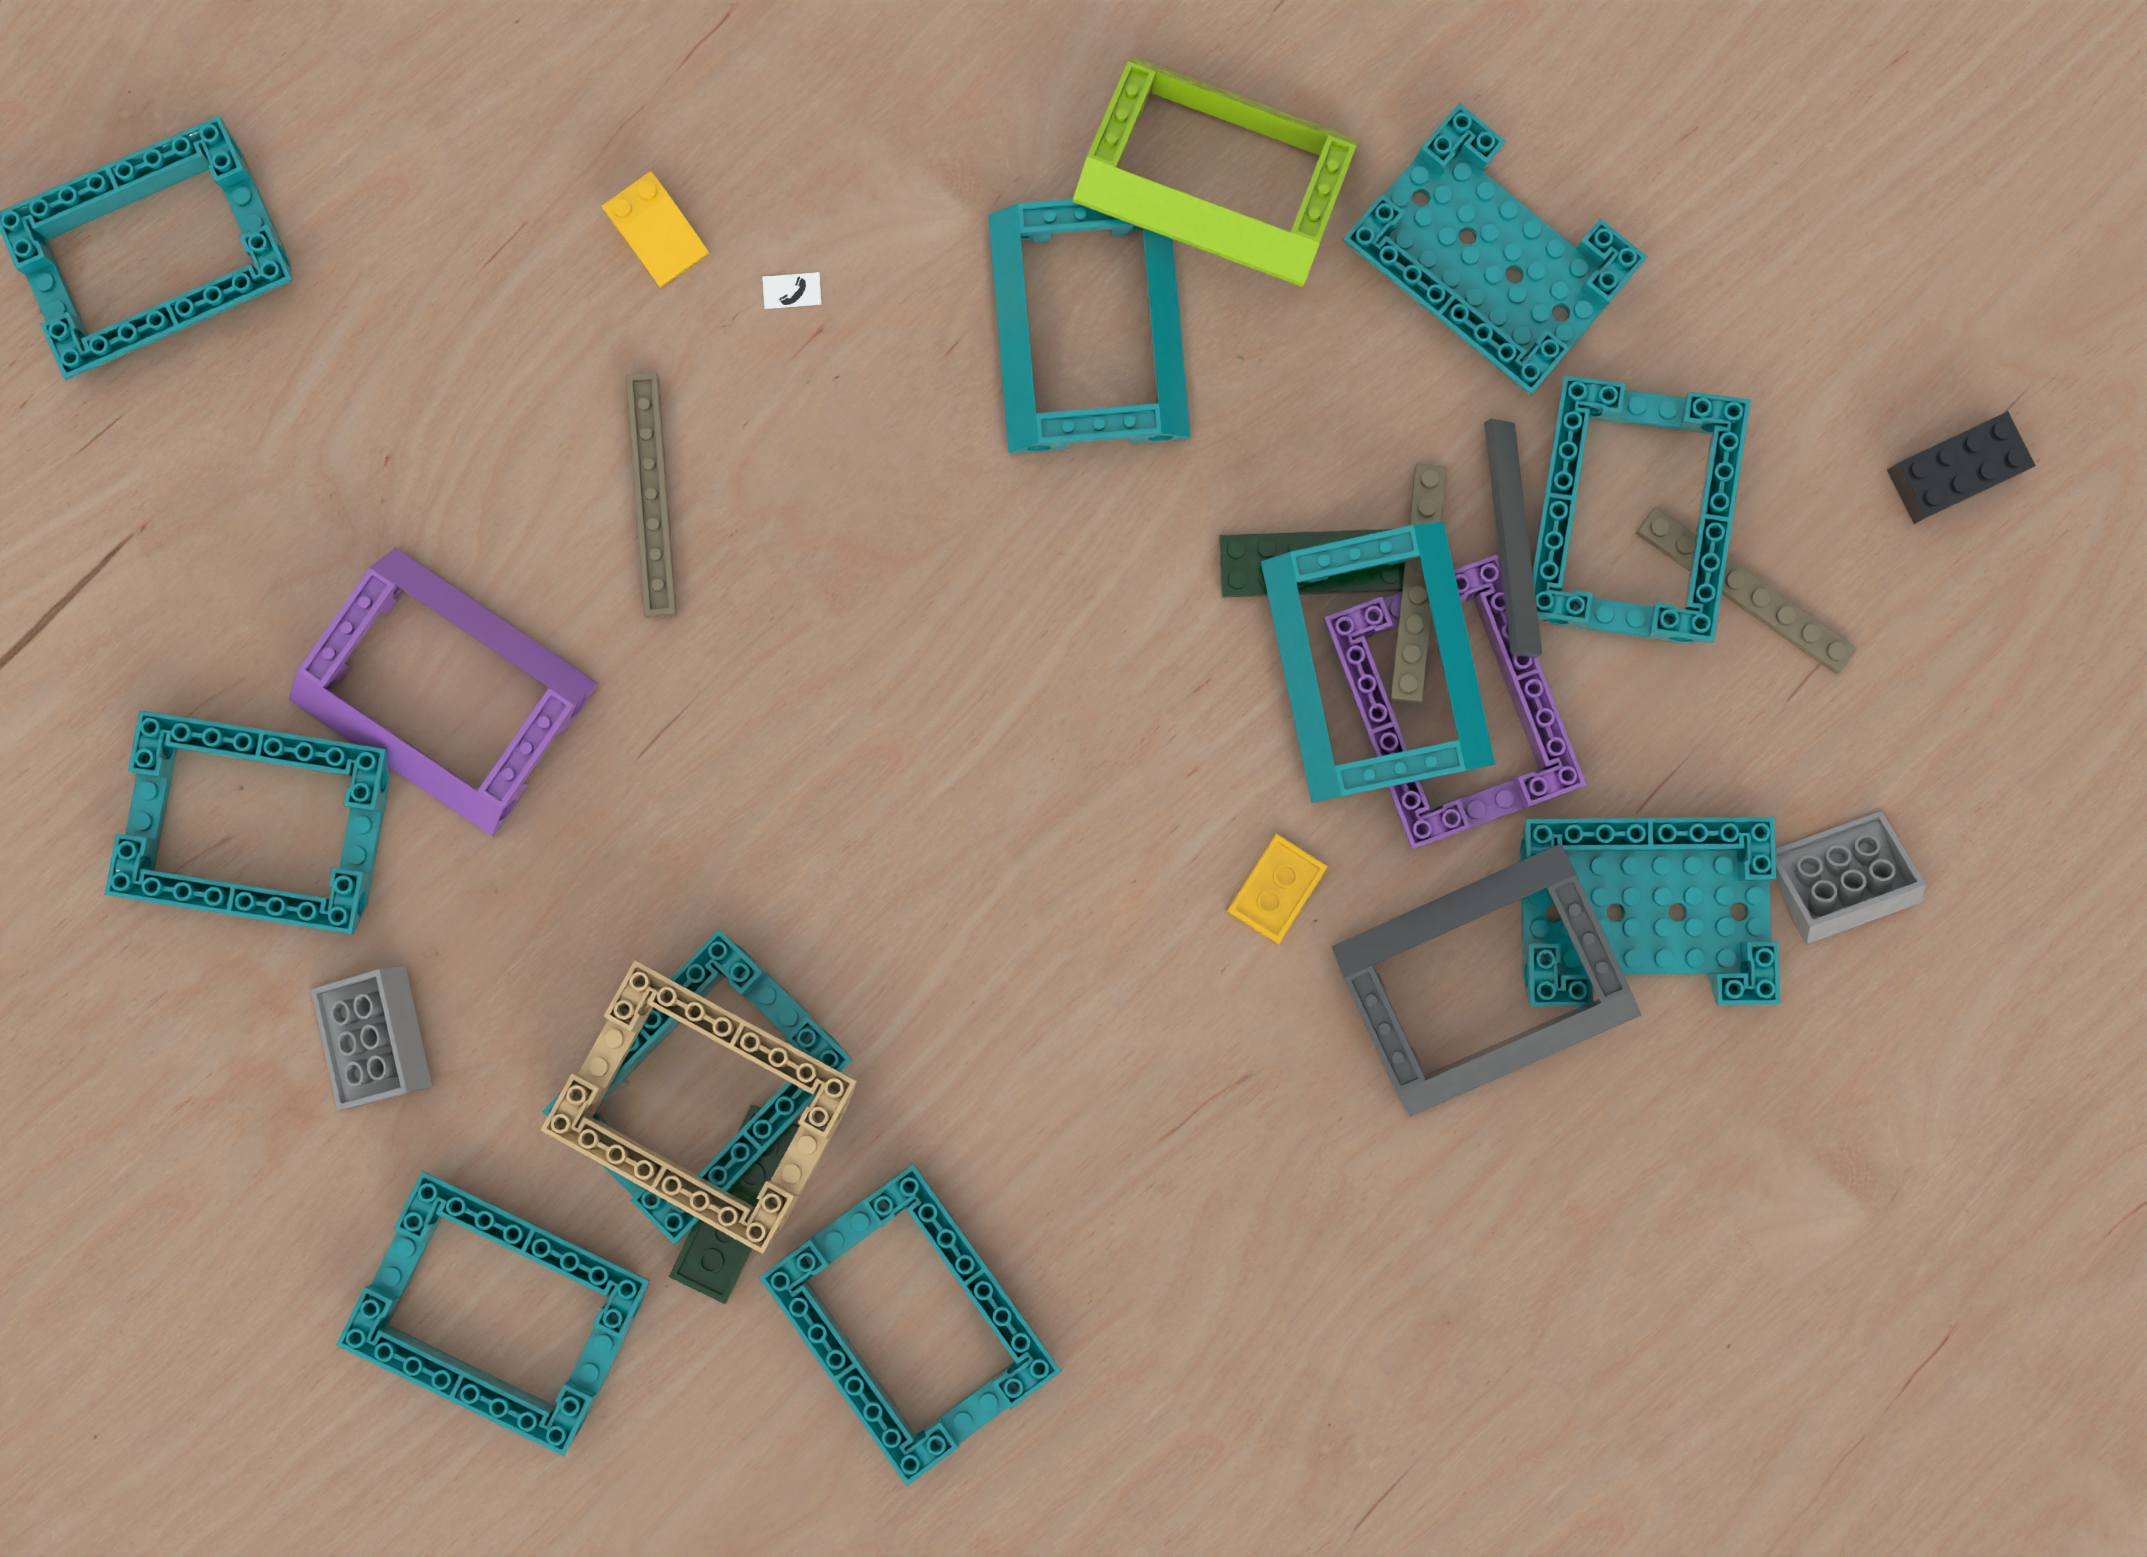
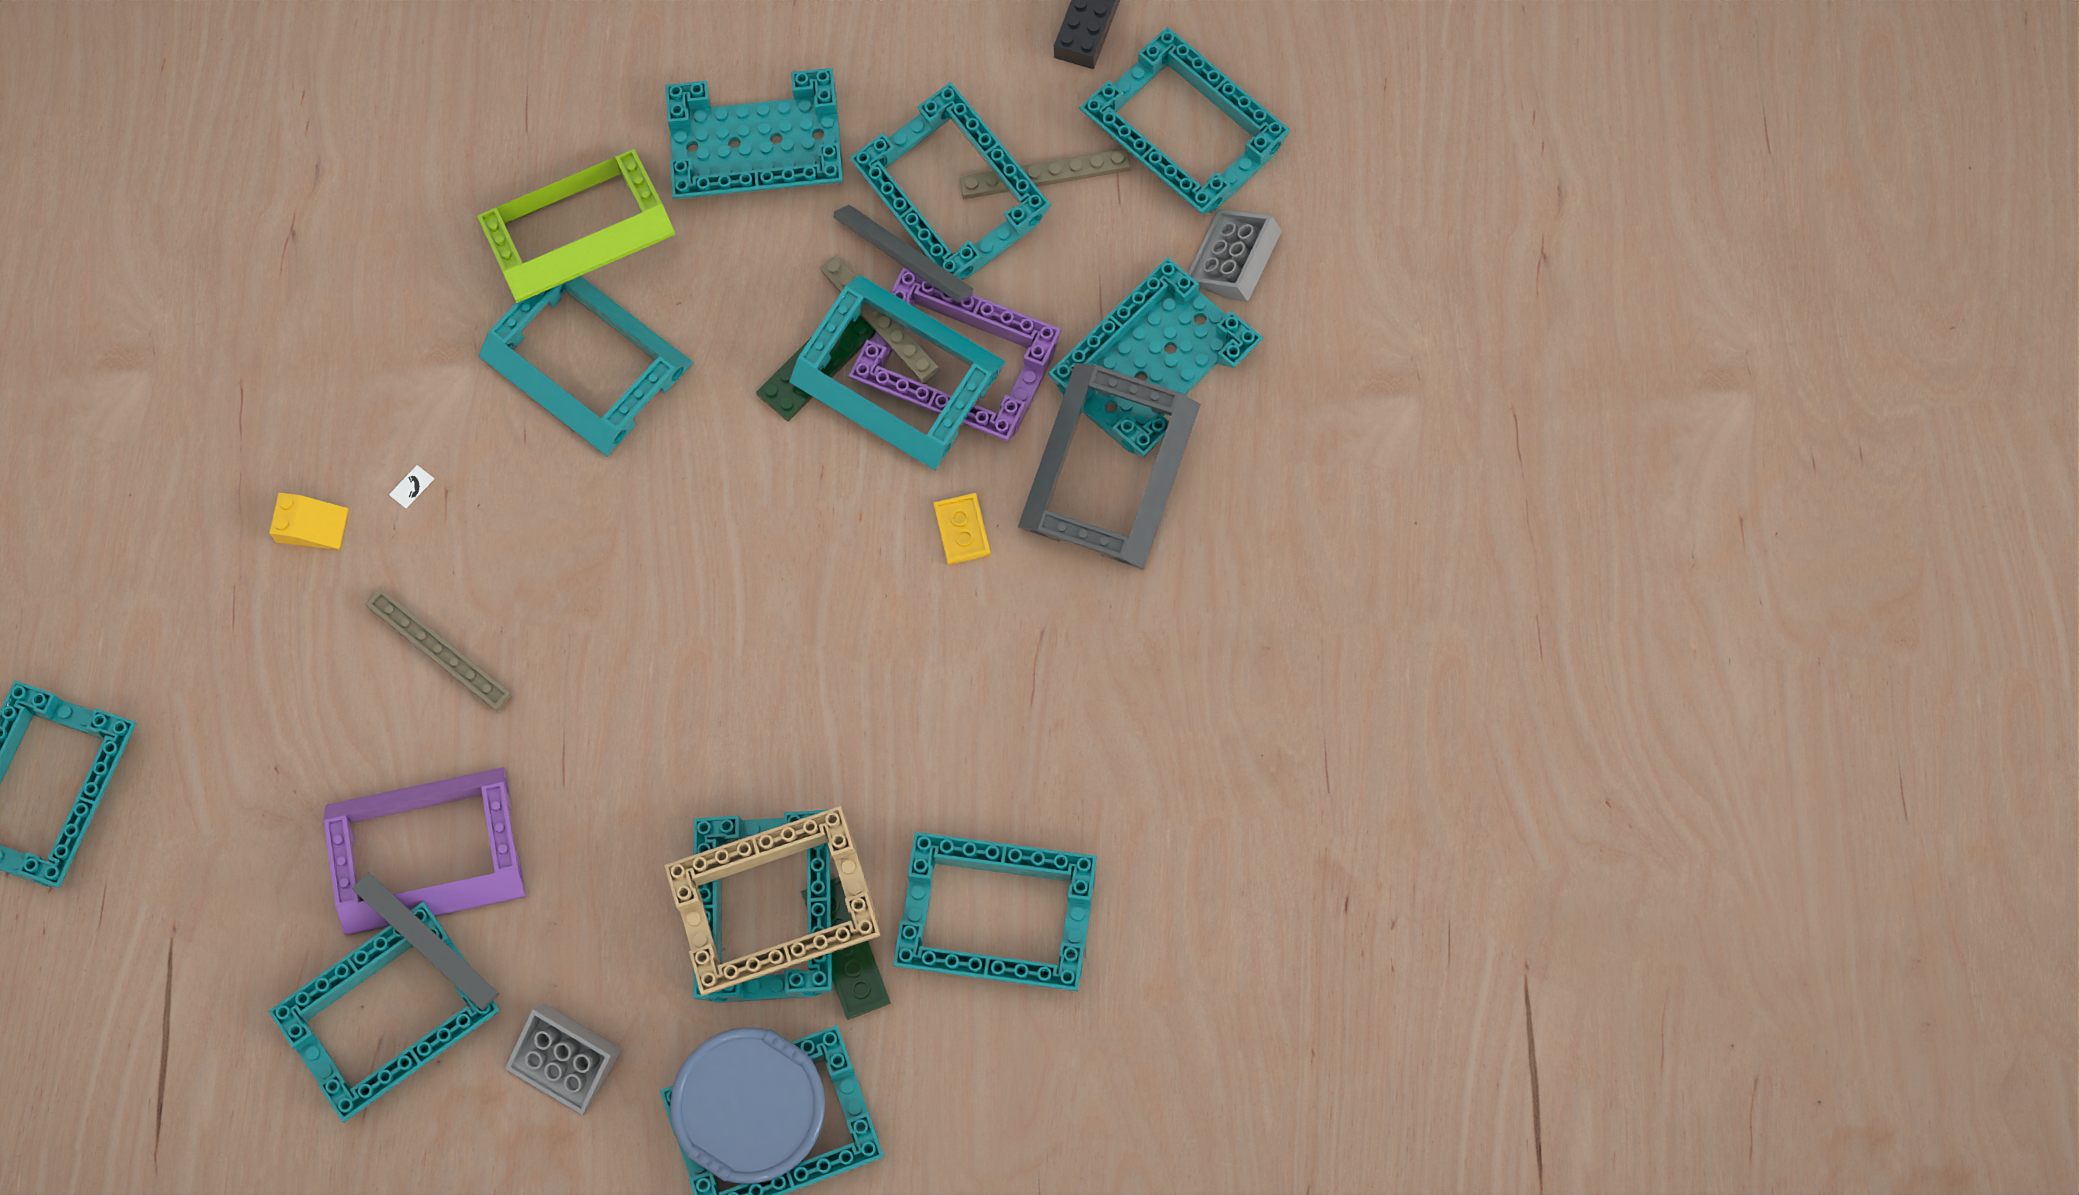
camera: 35 degrees left, 15 degrees down
(345, 795) = (425, 941): none -> dark grey tile
(481, 1281) = (747, 1105): none -> sand blue piece
(2018, 683) = (1171, 50): none -> teal slope

